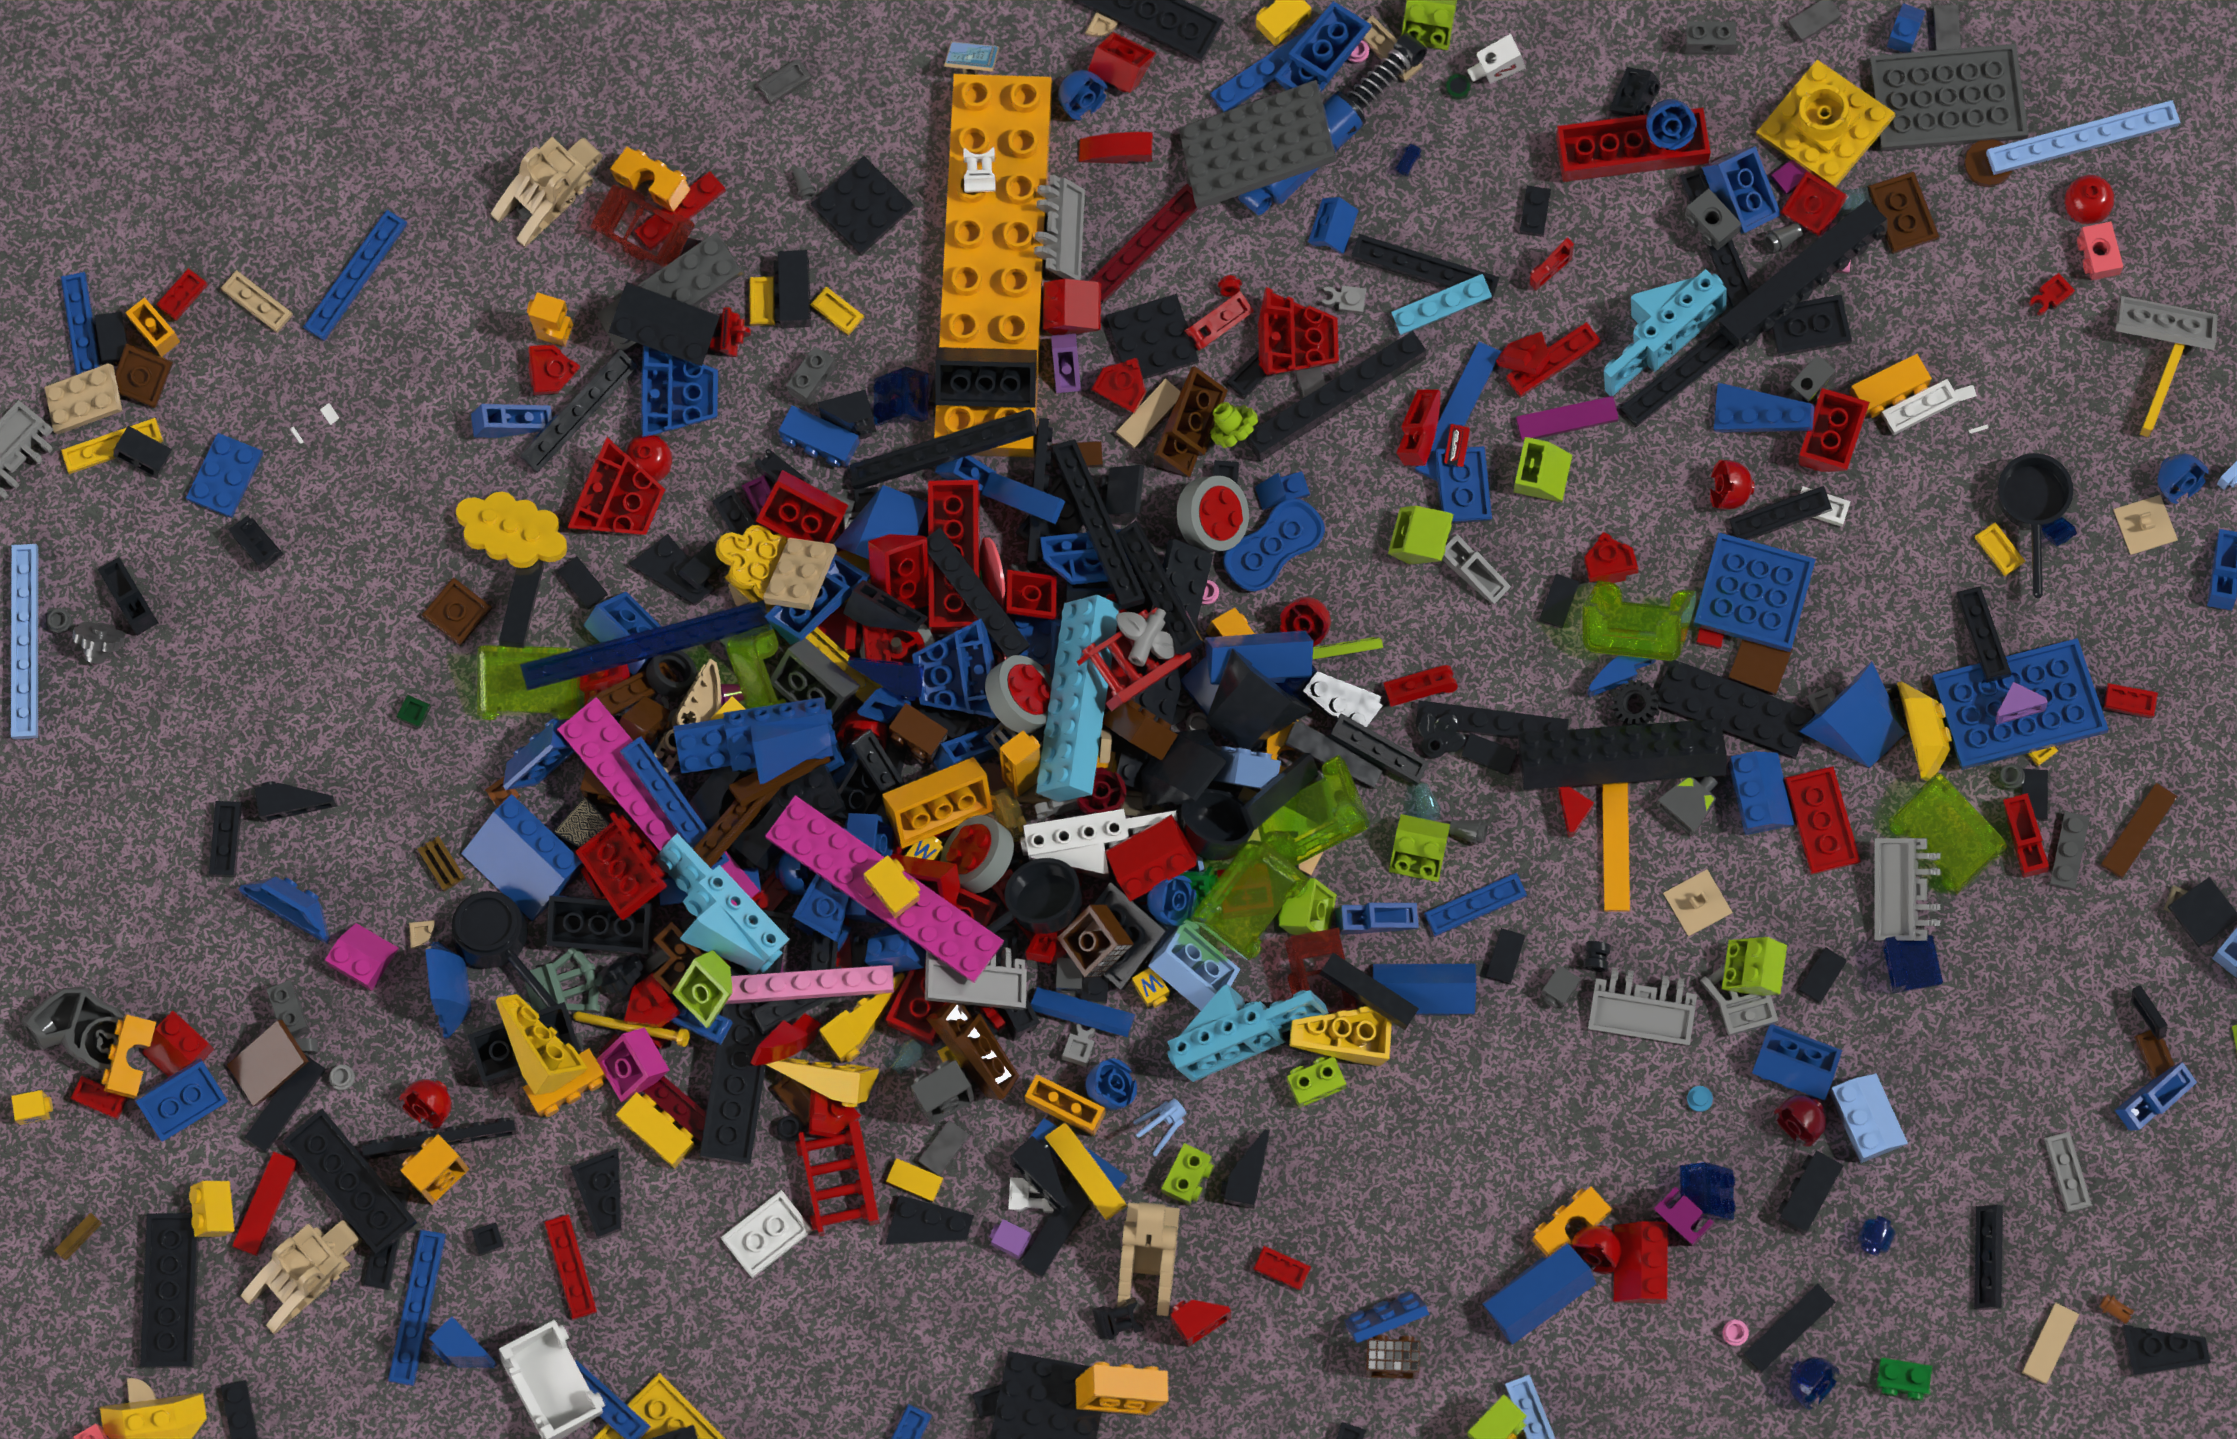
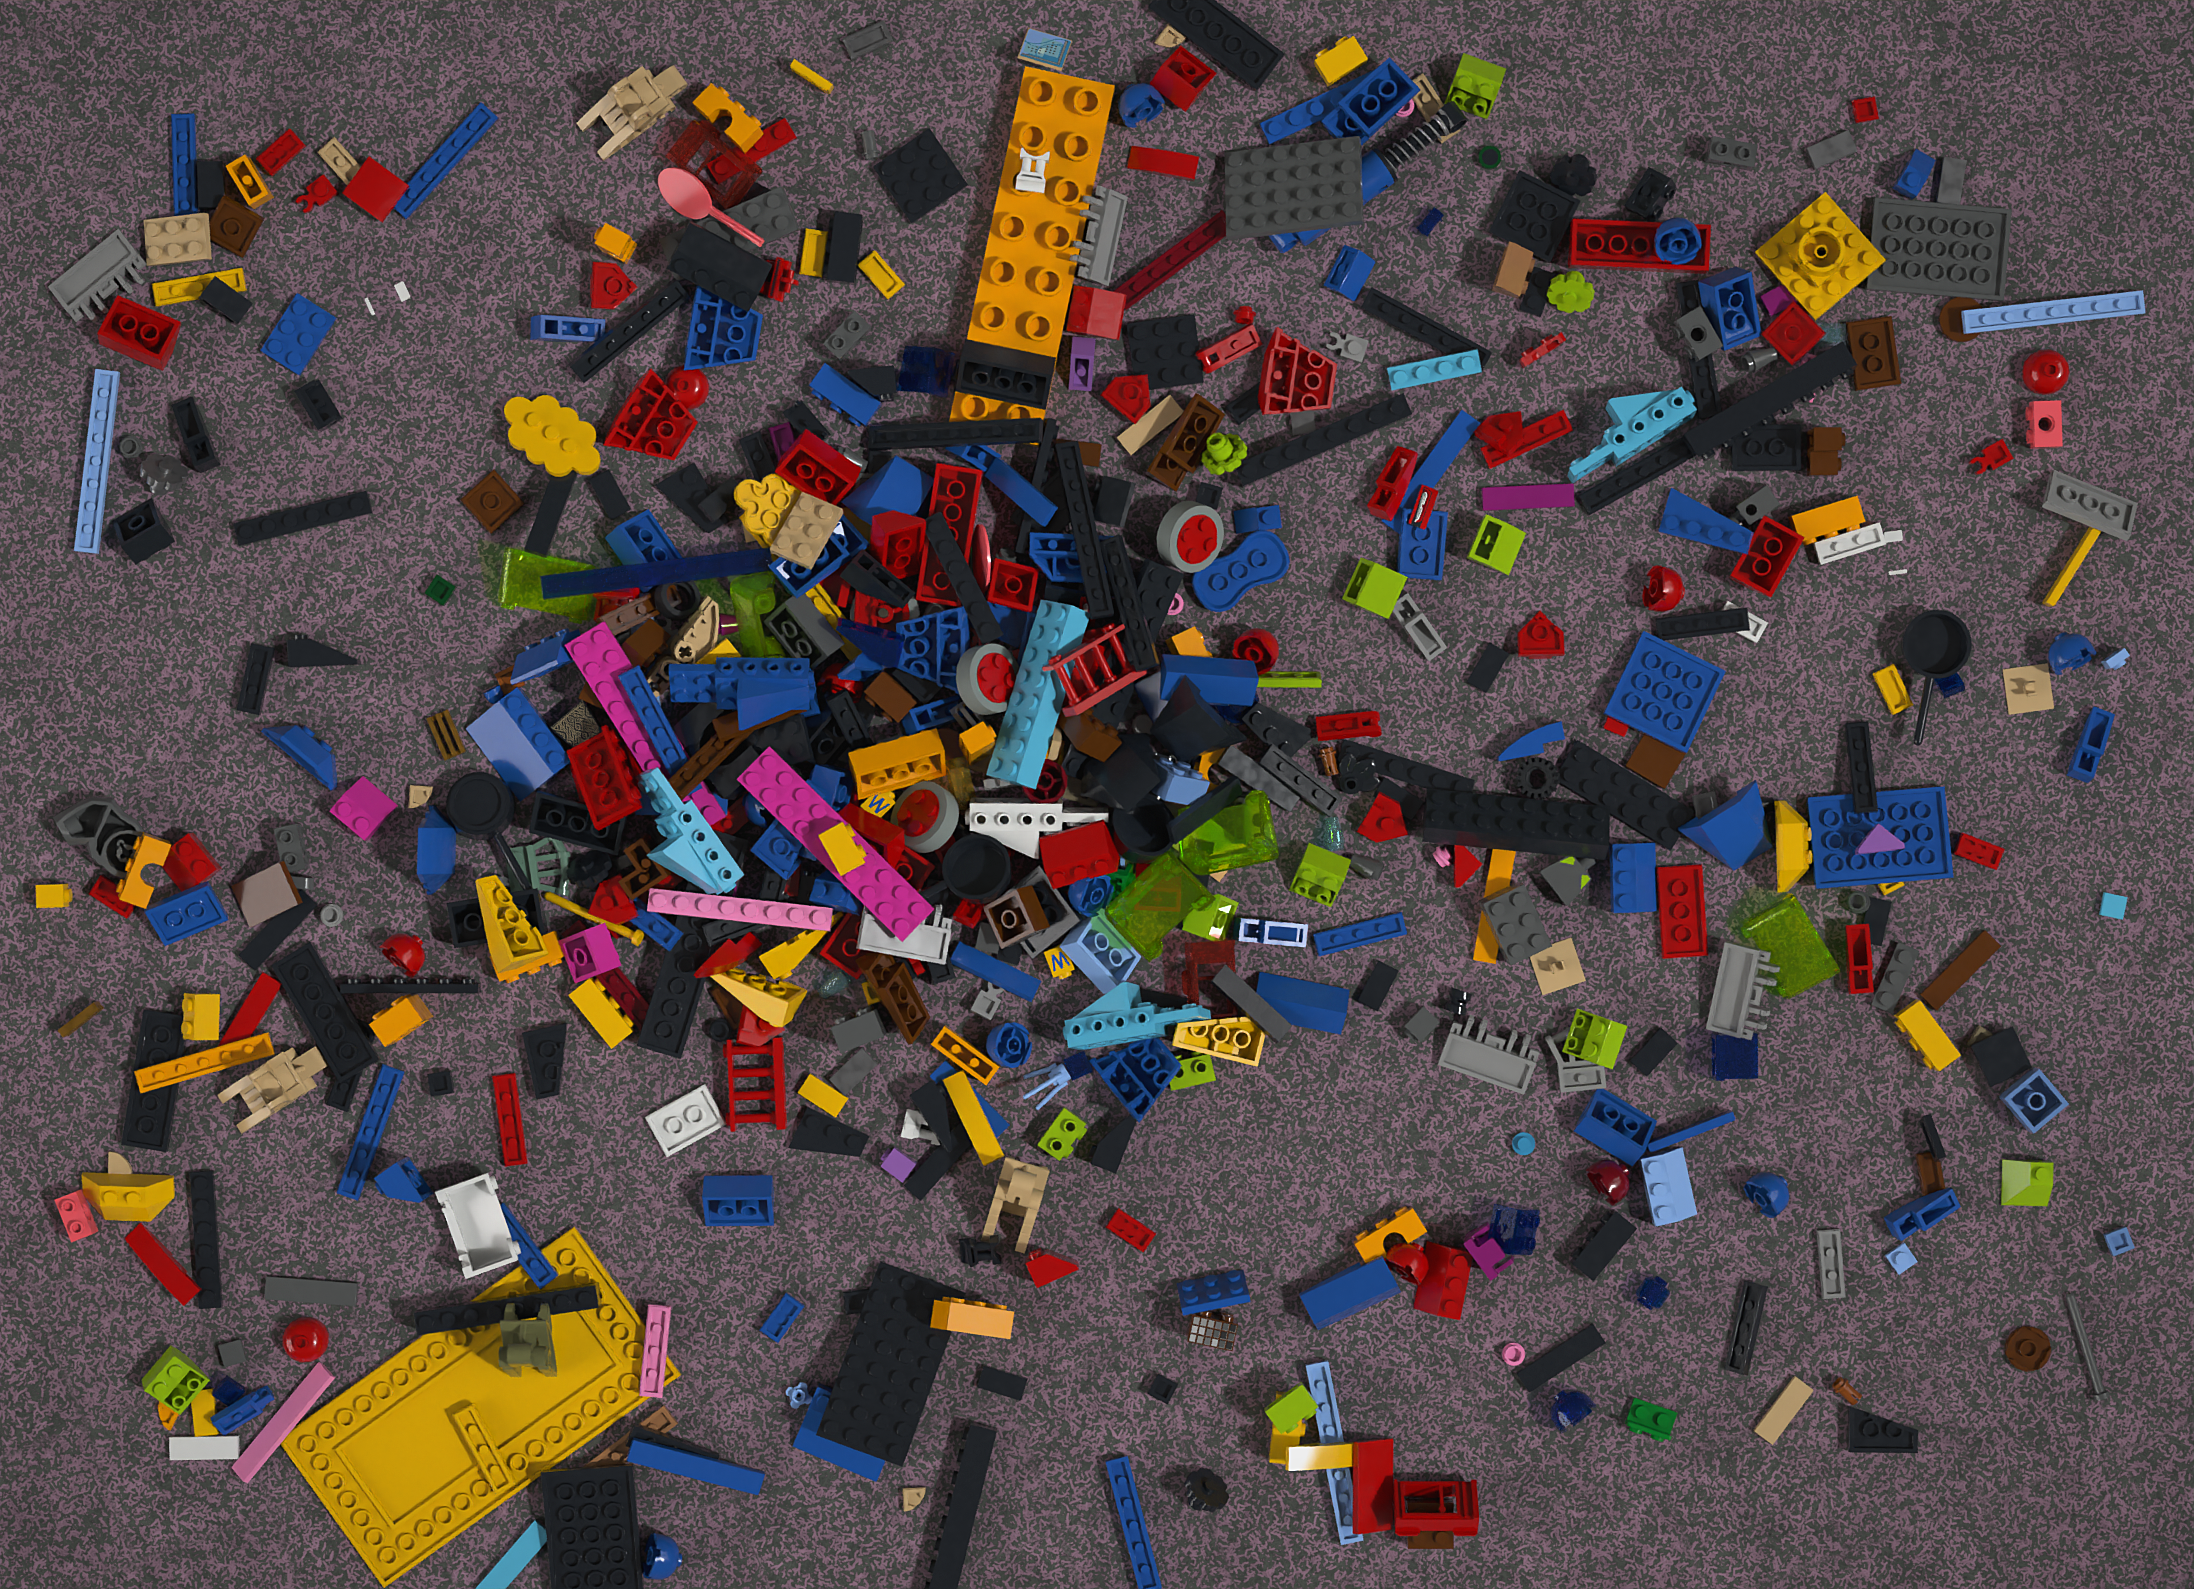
camera: 10 degrees right, 15 degrees up
(54, 500) = (139, 332): none -> red slope
(84, 705) = (143, 531): none -> black slope
(220, 1259) = (204, 1062): none -> light orange tile
(228, 328) = (319, 191): none -> red plate
(254, 663) = (303, 518): none -> black plate
(287, 313) = (375, 189): none -> red slope
(486, 810) = (494, 694): none -> blue hinge
(622, 262) = (690, 198): none -> coral piece
(705, 987) = (664, 904): lime slope -> none
(731, 125) = (811, 76): none -> yellow tile
(839, 1311) = (738, 1200): none -> blue slope
(1146, 636) = (1108, 653): light grey plant -> none
(1191, 1097) = (1078, 1065): none -> clear blue plate
(1258, 1092) = (1138, 1074): none -> blue wedge
(1405, 724) = (1328, 759): none -> dark orange pin
(1477, 777) = (1383, 820): none -> red plate
(1497, 61) = (1540, 142): white torso -> none
(1505, 191) = (1513, 271): none -> medium nougat slope
(1516, 136) = (1534, 216): none -> black plate
(1549, 86) = (1574, 175): none -> black plant
(1550, 805) = (1443, 856): none -> bright pink plate
(1570, 202) = (1571, 292): none -> lime plant
(1635, 628) = (1552, 708): clear neon green windscreen -> none
(1642, 860) = (1515, 923): none -> dark grey brick
(1869, 311) = (1823, 450): none -> reddish brown brick
(1880, 1052) = (1690, 1131): none -> blue tile
(1980, 1102) = (1769, 1192): none -> blue cylinder
(2117, 904) = (1926, 1035): none -> yellow brick
(2144, 1152) = (1901, 1258): none -> light blue plate

